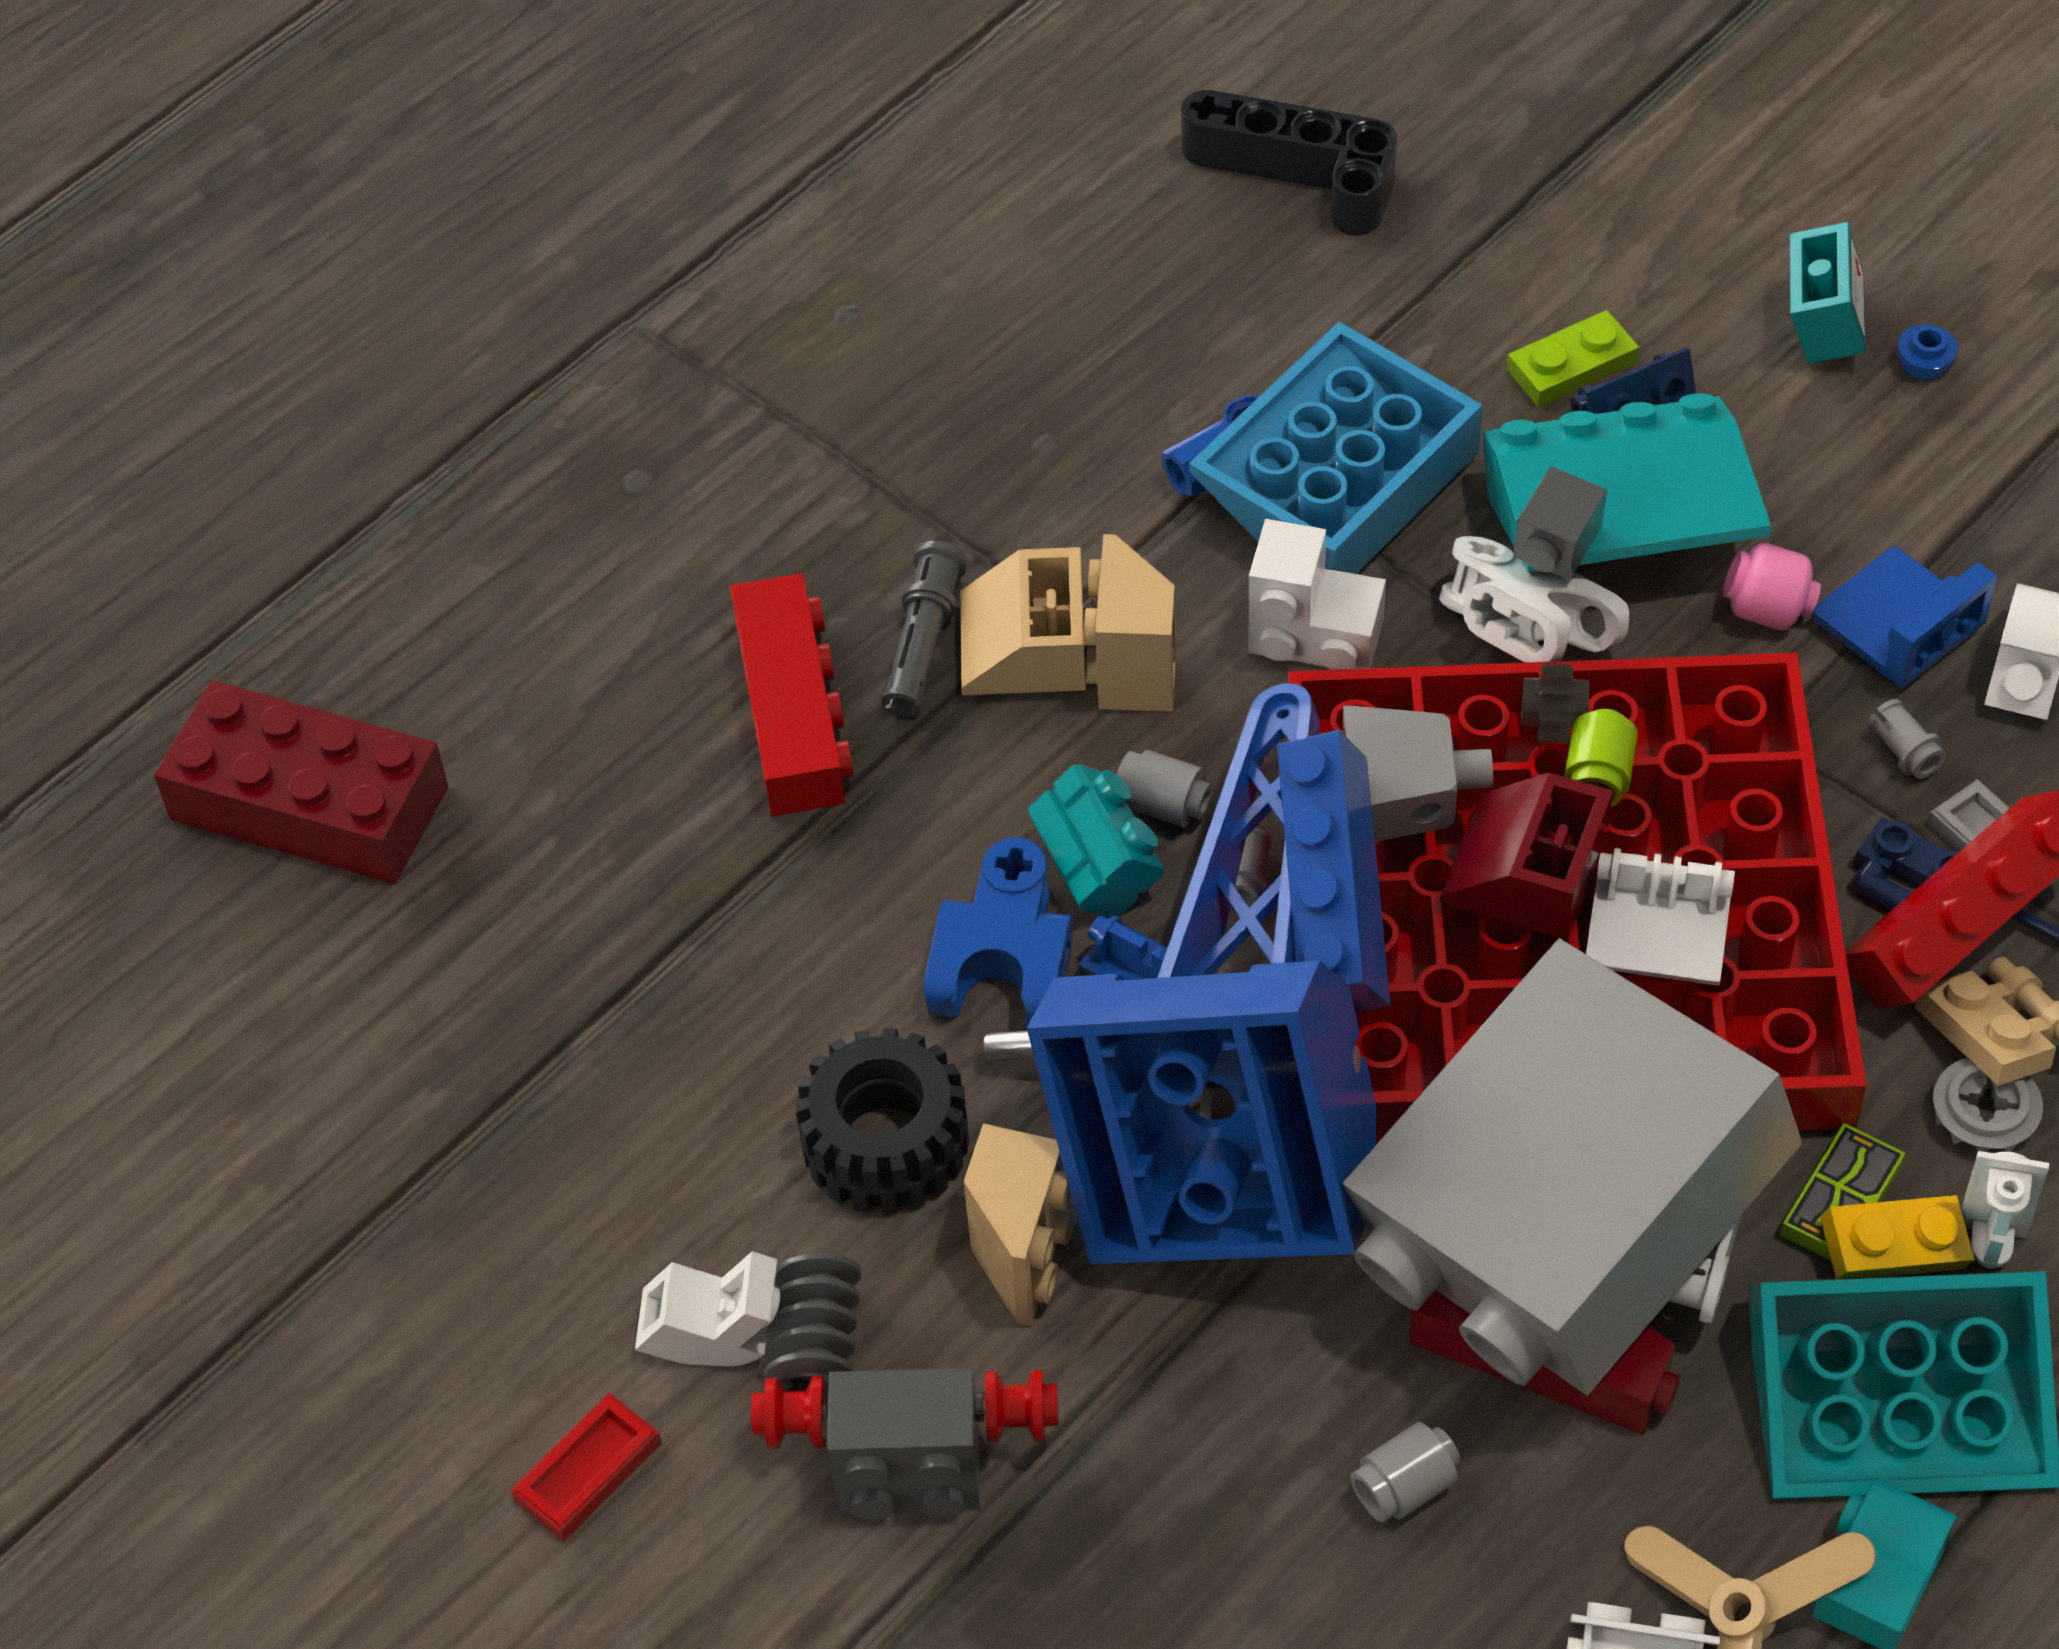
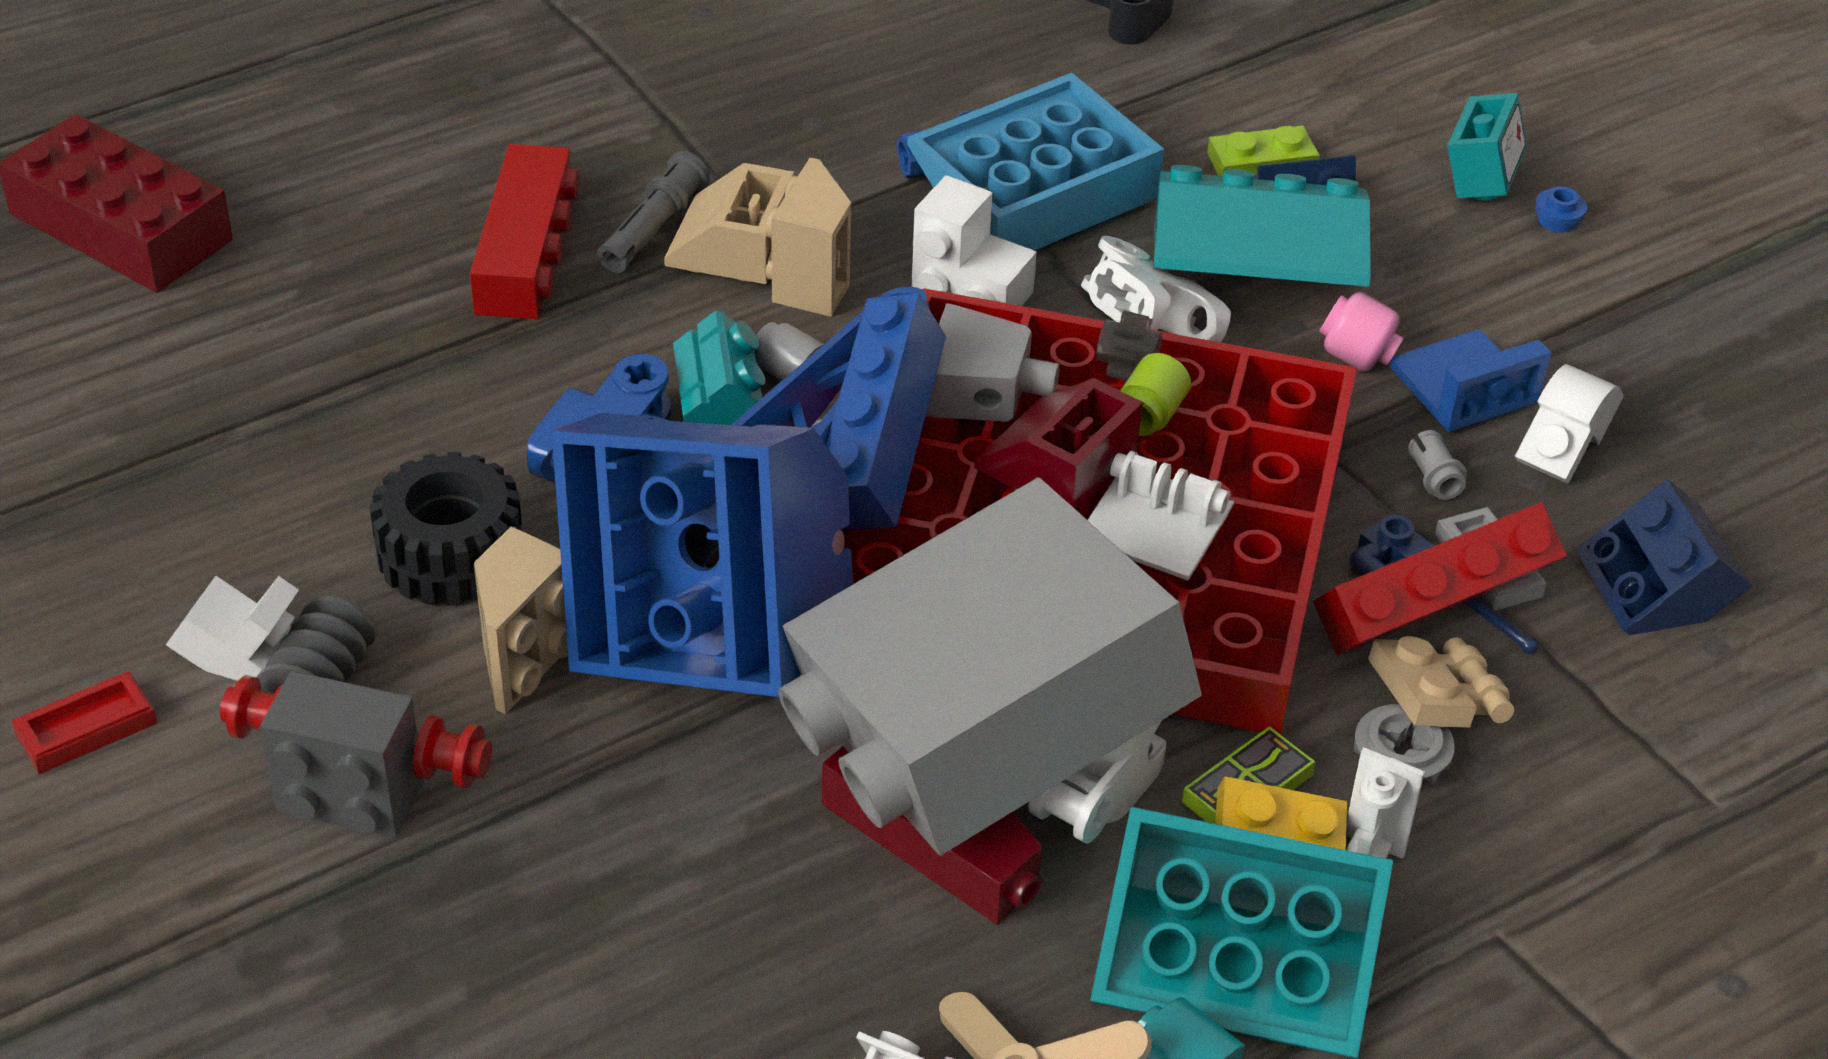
camera: 10 degrees right, 10 degrees down
(1406, 1472) = (768, 892): light grey brick -> none
(1559, 523) = (1187, 228): dark grey brick -> none

